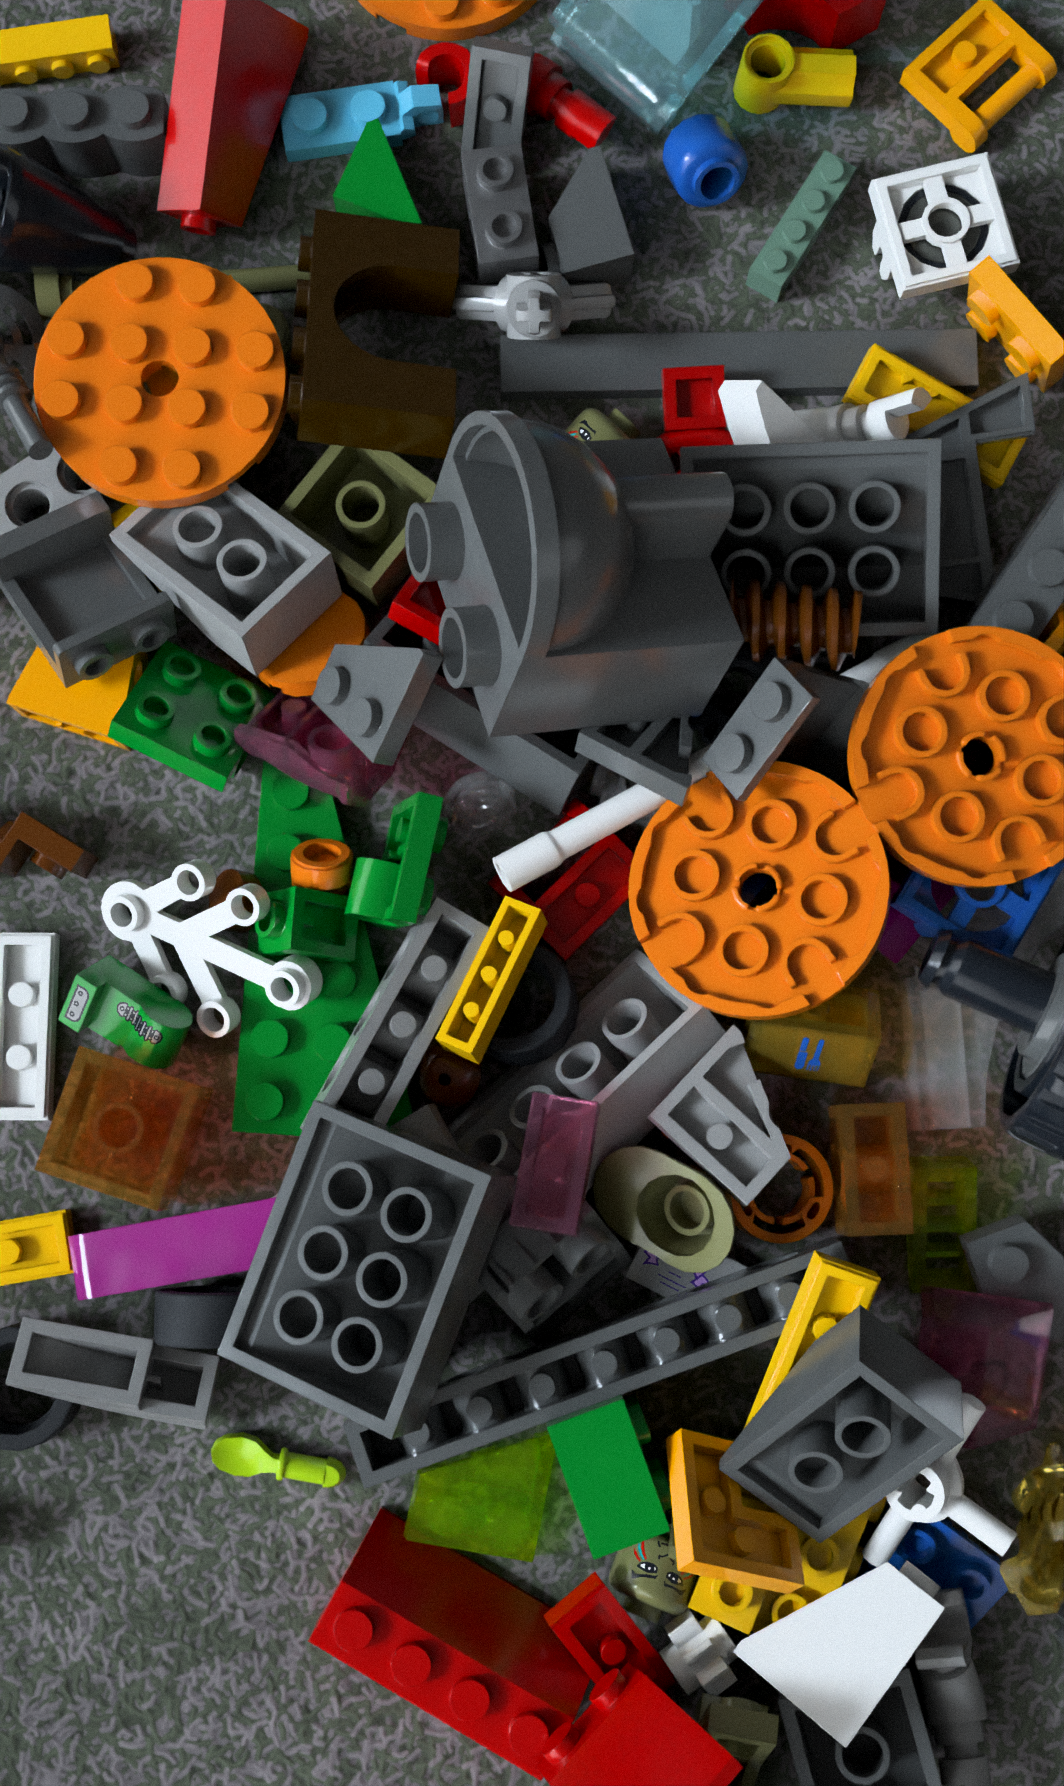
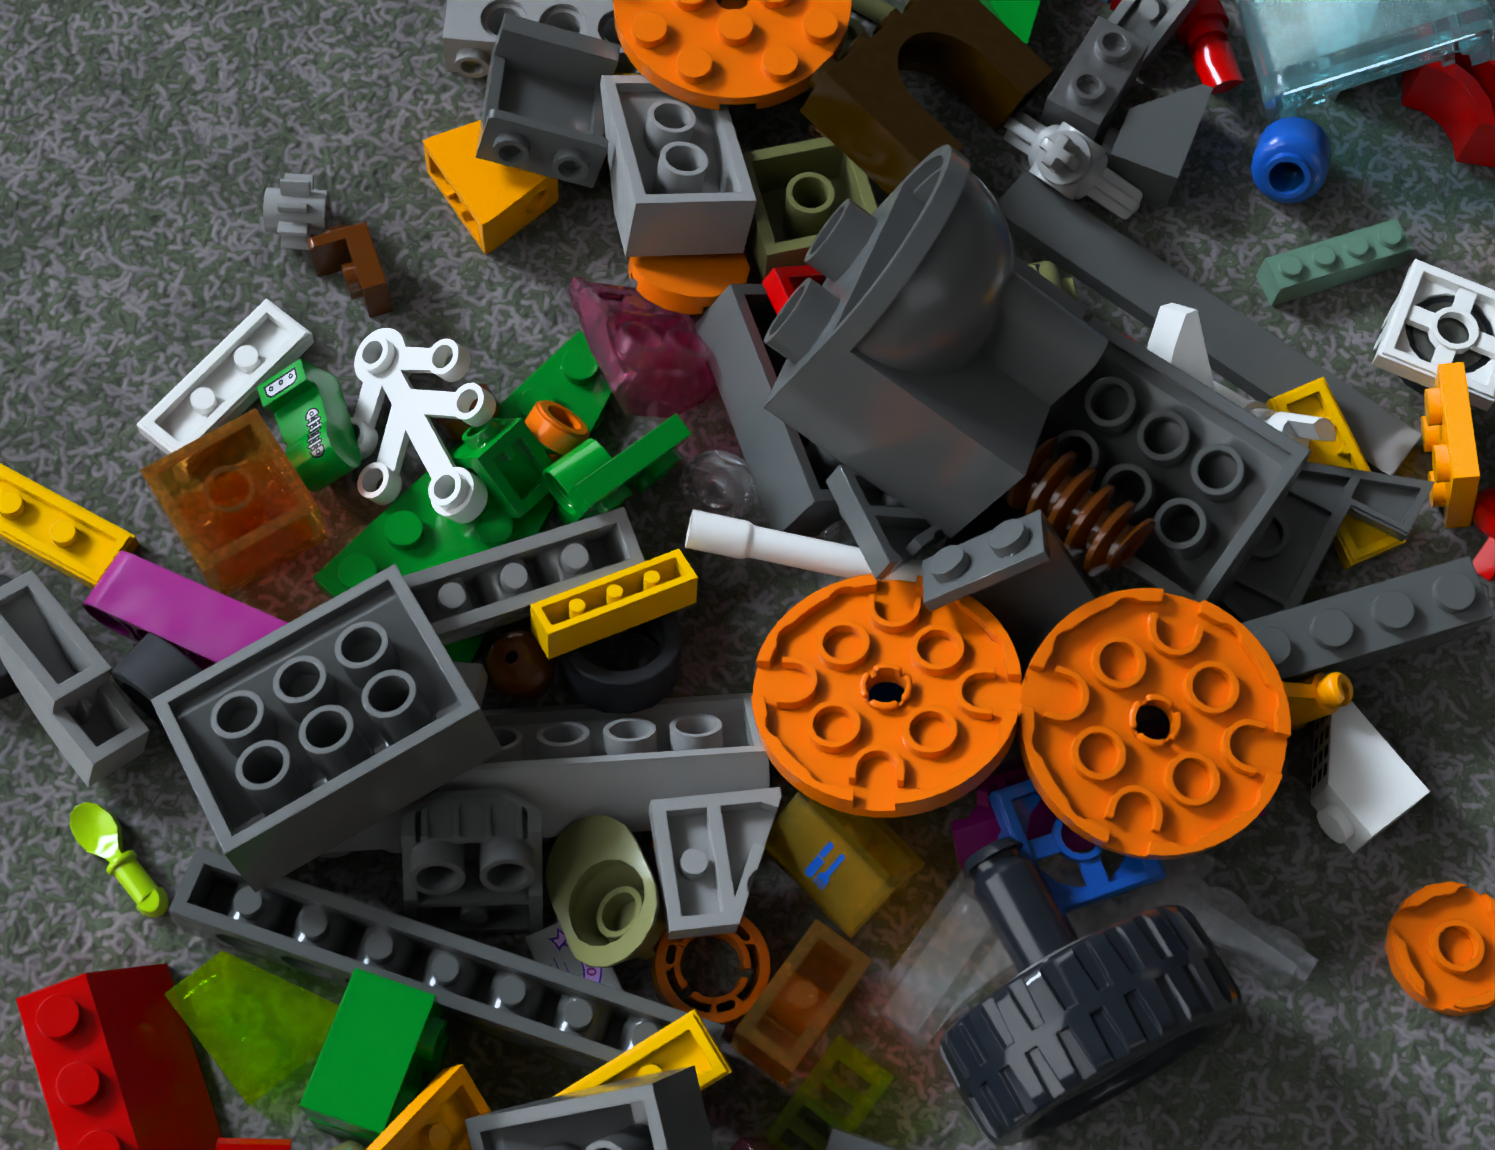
camera: 30 degrees right, 15 degrees down
(187, 715) = (544, 246): green plate -> none
(375, 694) = (703, 319): dark grey wing -> none
(555, 1164) = (540, 769): clear pink plate -> none
(583, 895) = (738, 615): red plate -> none
(692, 398) = (1137, 308): red plate -> none
(798, 75) = (1400, 142): yellow piece -> none

